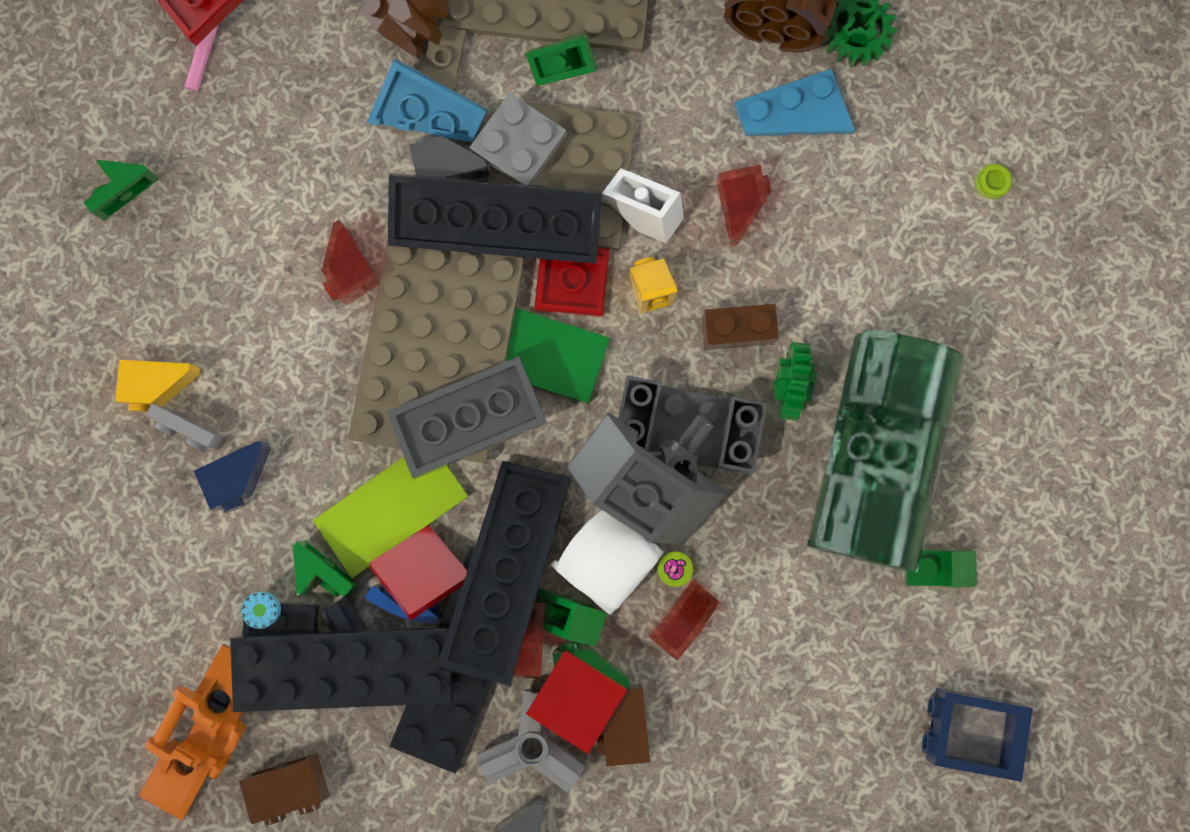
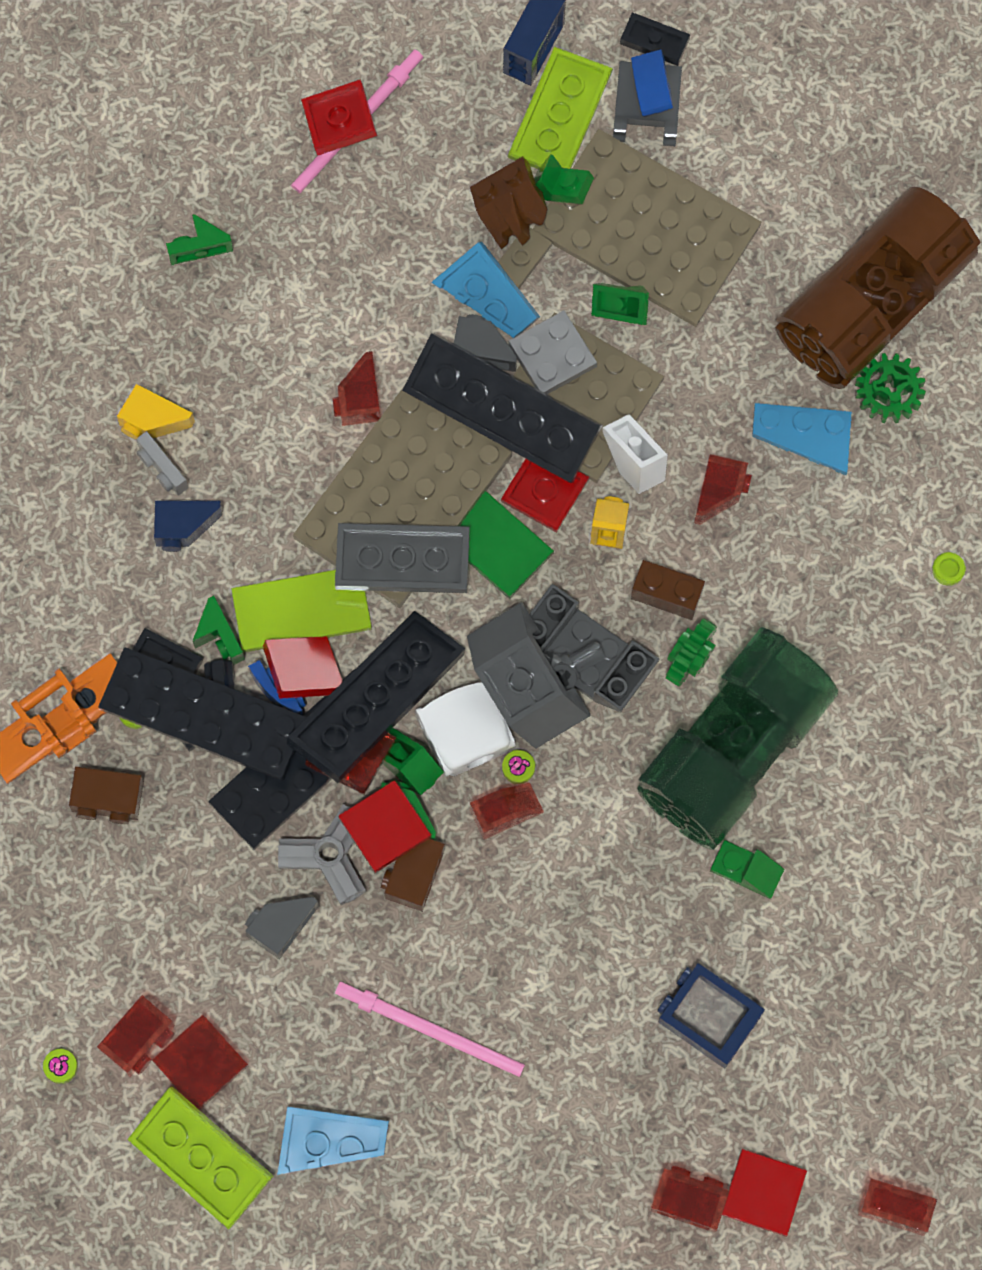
camera: 20 degrees right, 10 degrees down
(261, 609) = (157, 638): medium azure tile -> none

